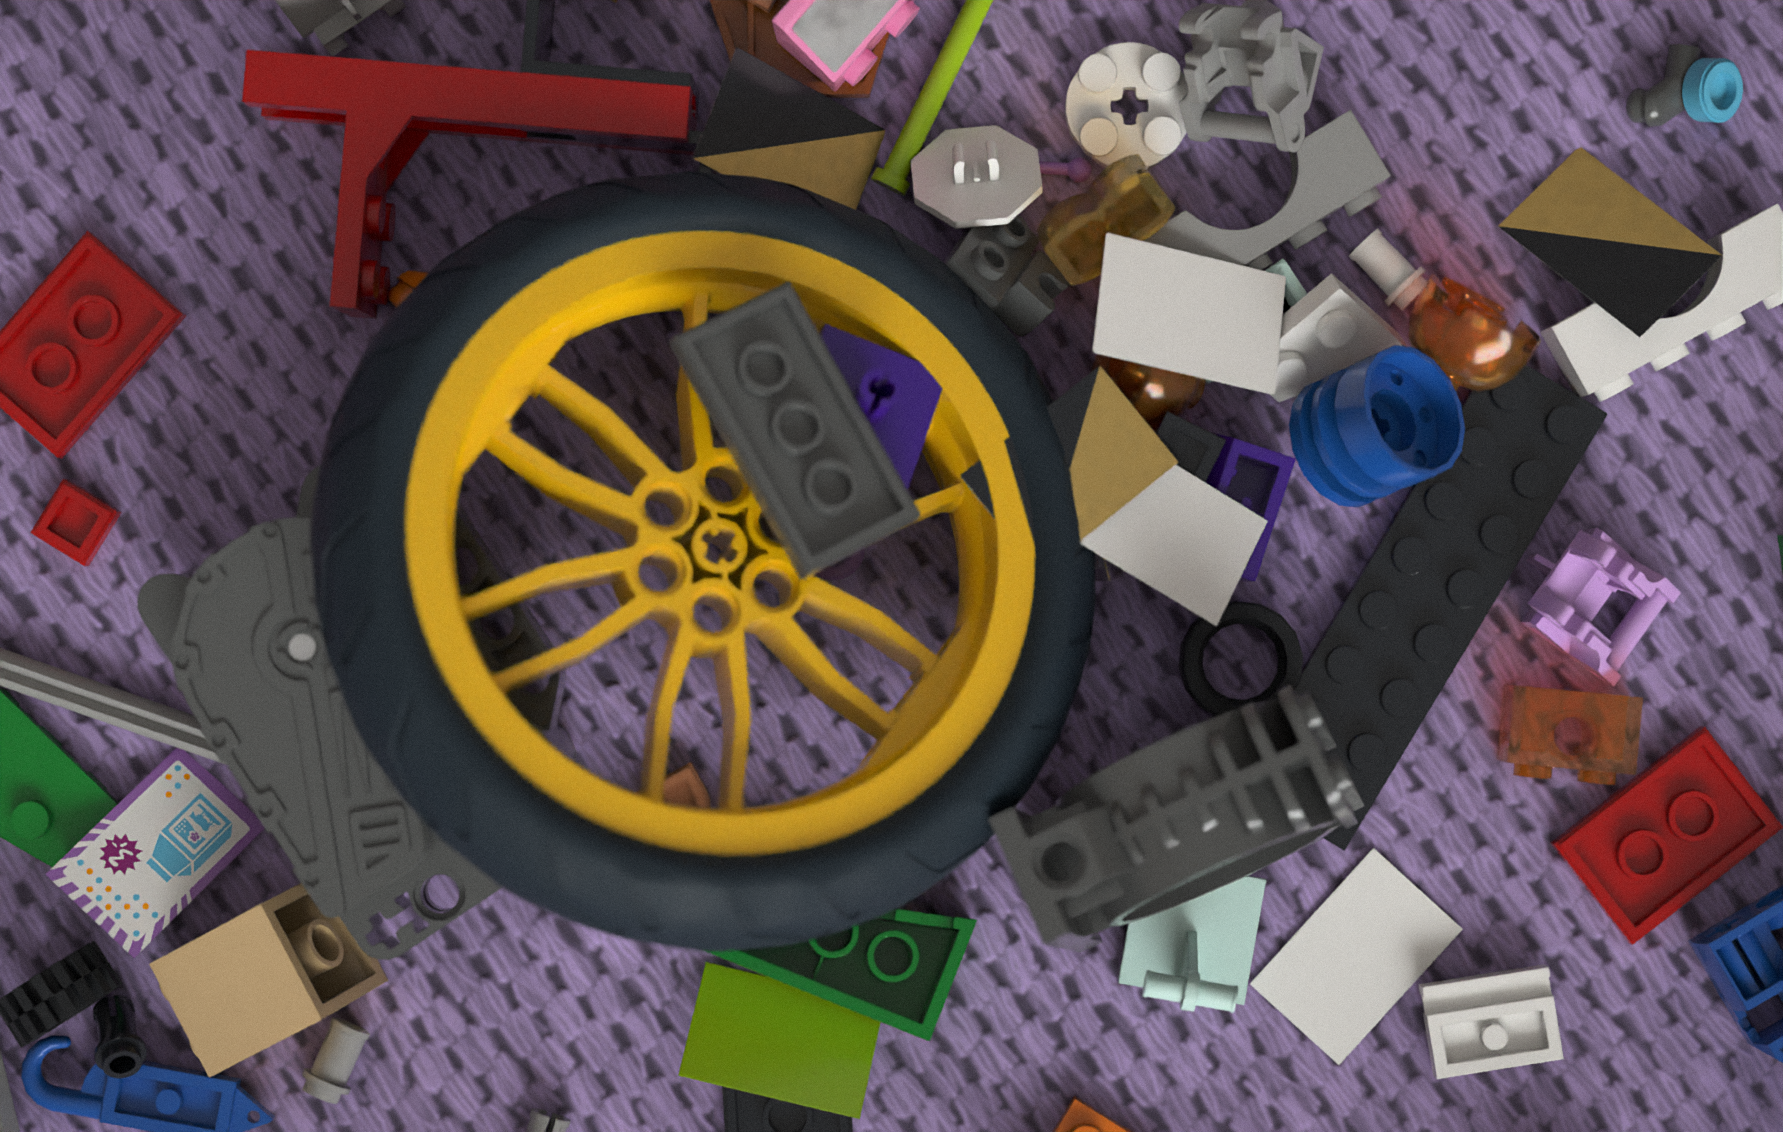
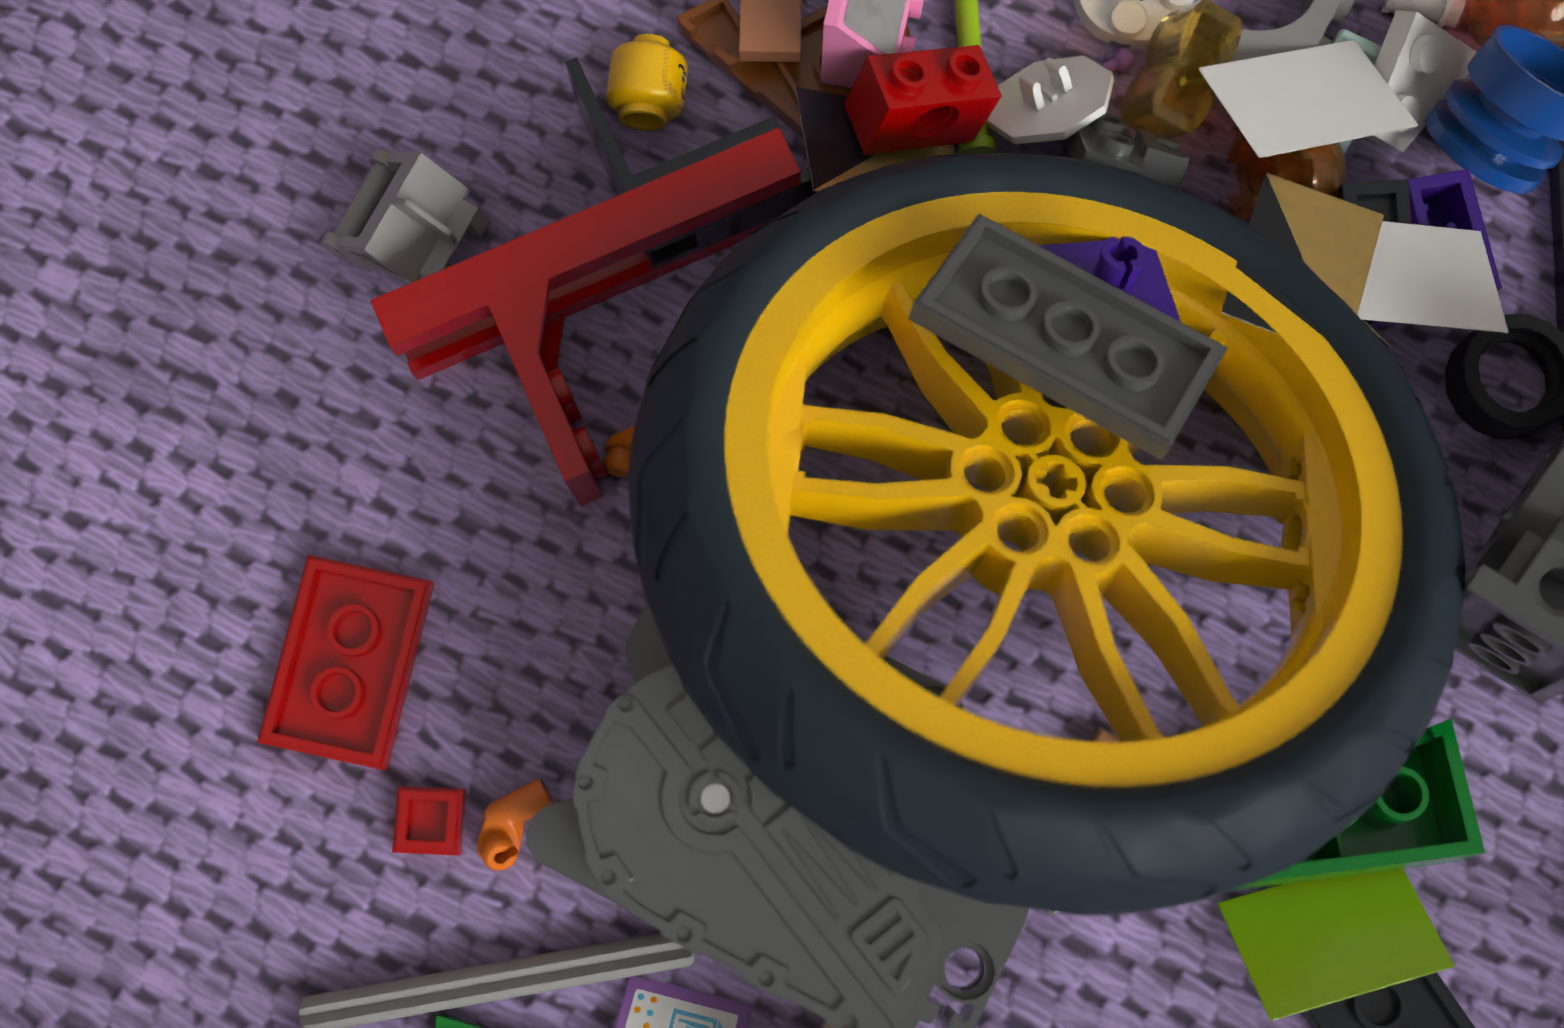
camera: 25 degrees left, 10 degrees down
(138, 561) = (505, 822): none -> orange arm
(844, 122) = (921, 99): none -> red brick

